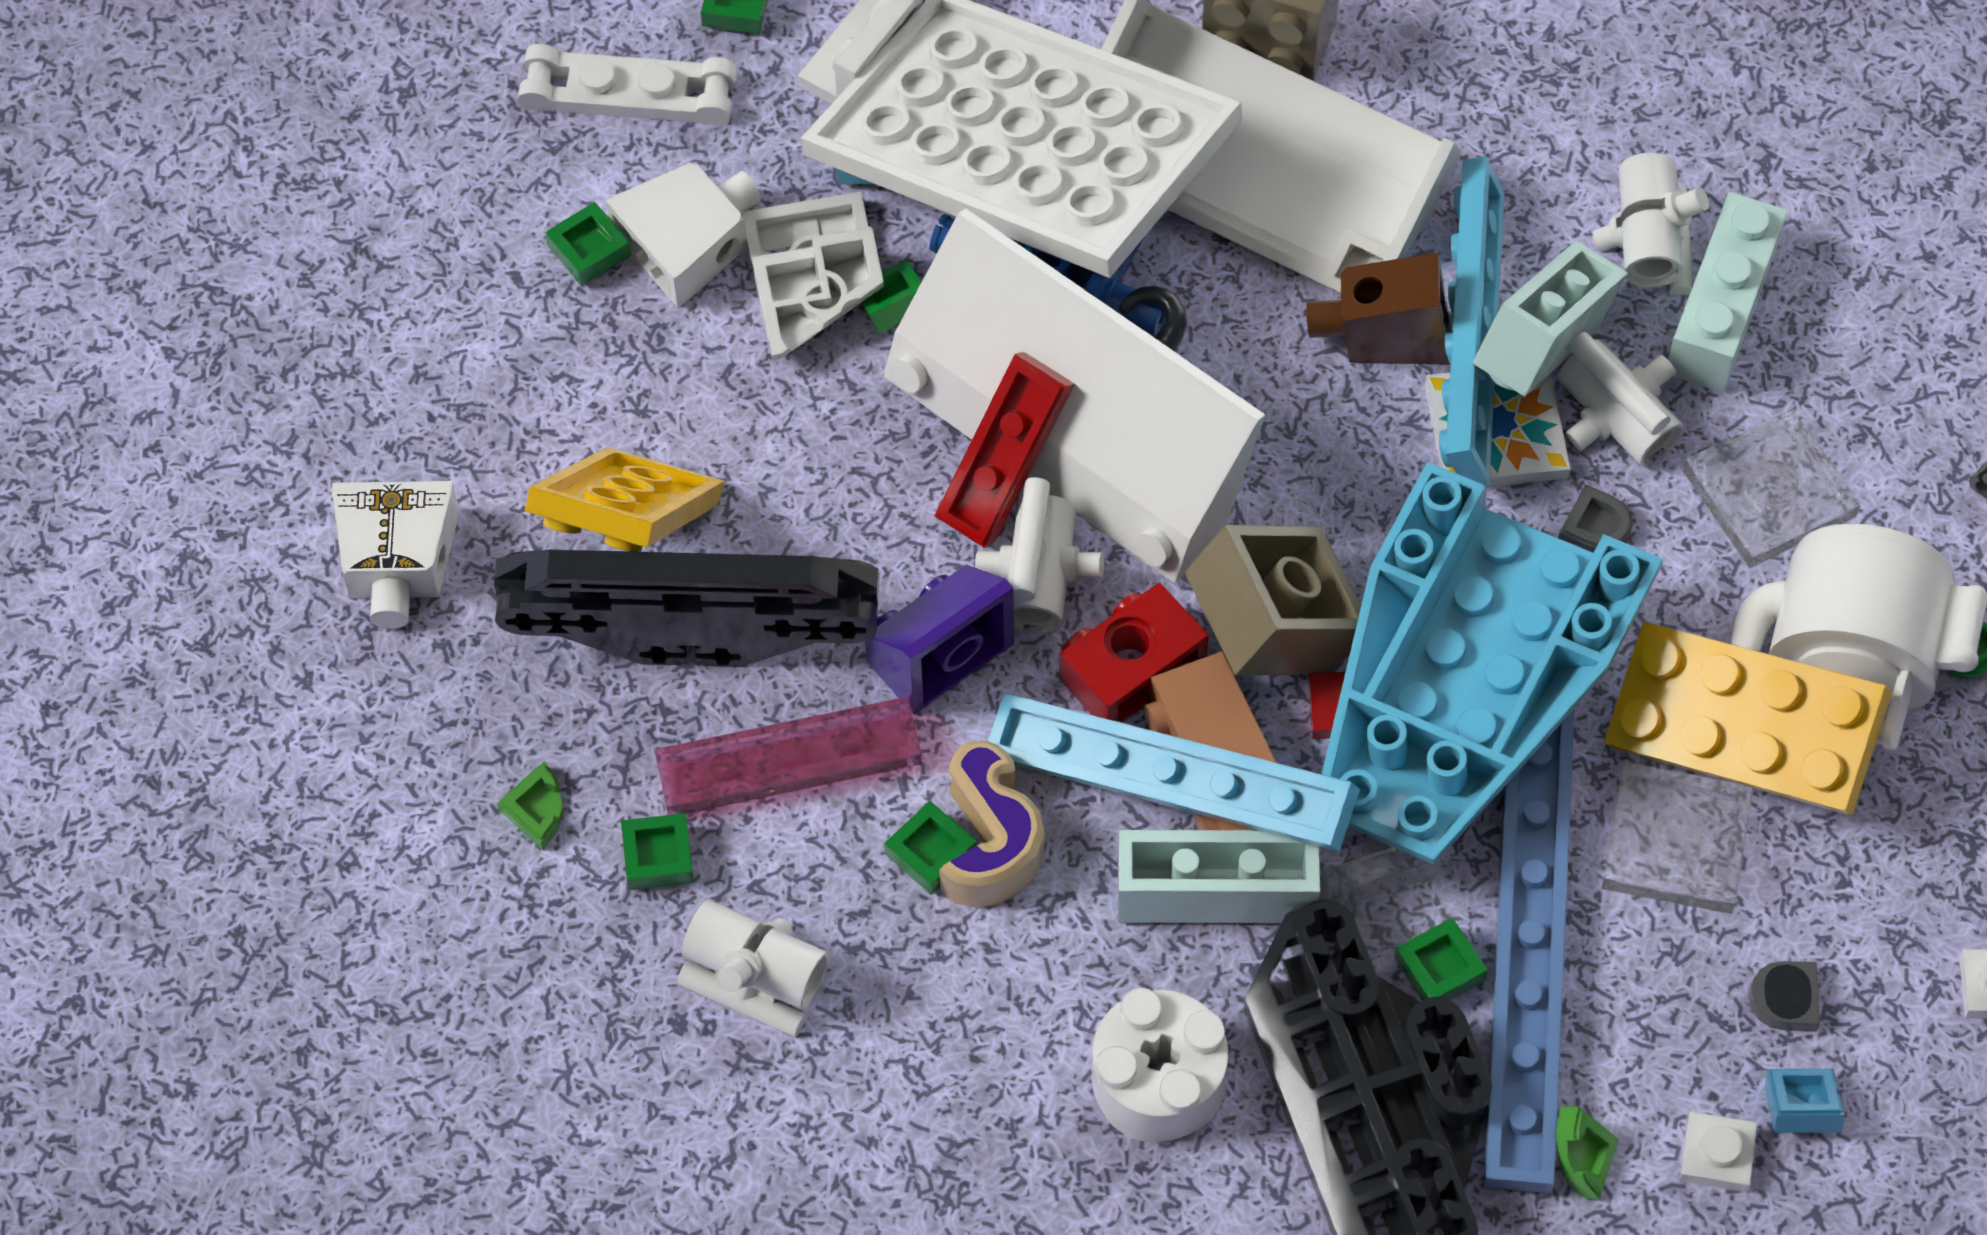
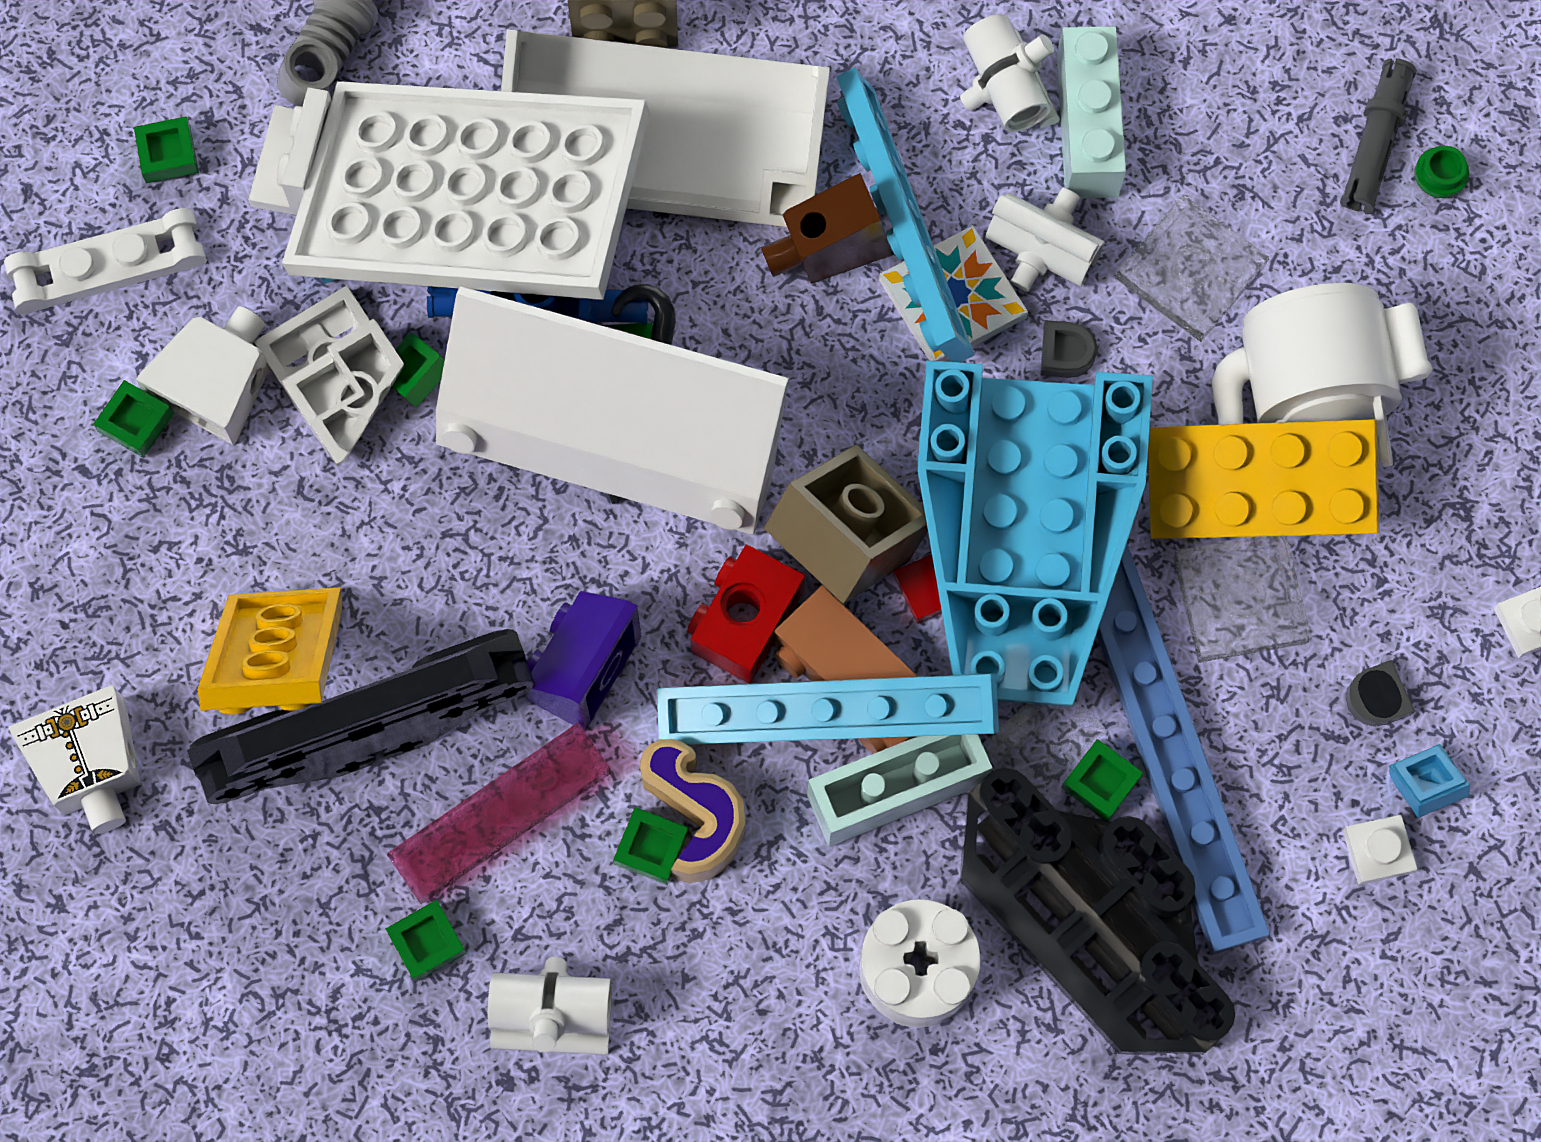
camera: 25 degrees left, 10 degrees up
(535, 805) = (304, 939): bright green tile -> none
(1004, 449) = (570, 476): red tile -> none
(1041, 557) = (635, 556): white pin -> none
(1546, 315) = (968, 194): light aqua brick -> none
(1584, 1151) = (1280, 895): bright green tile -> none

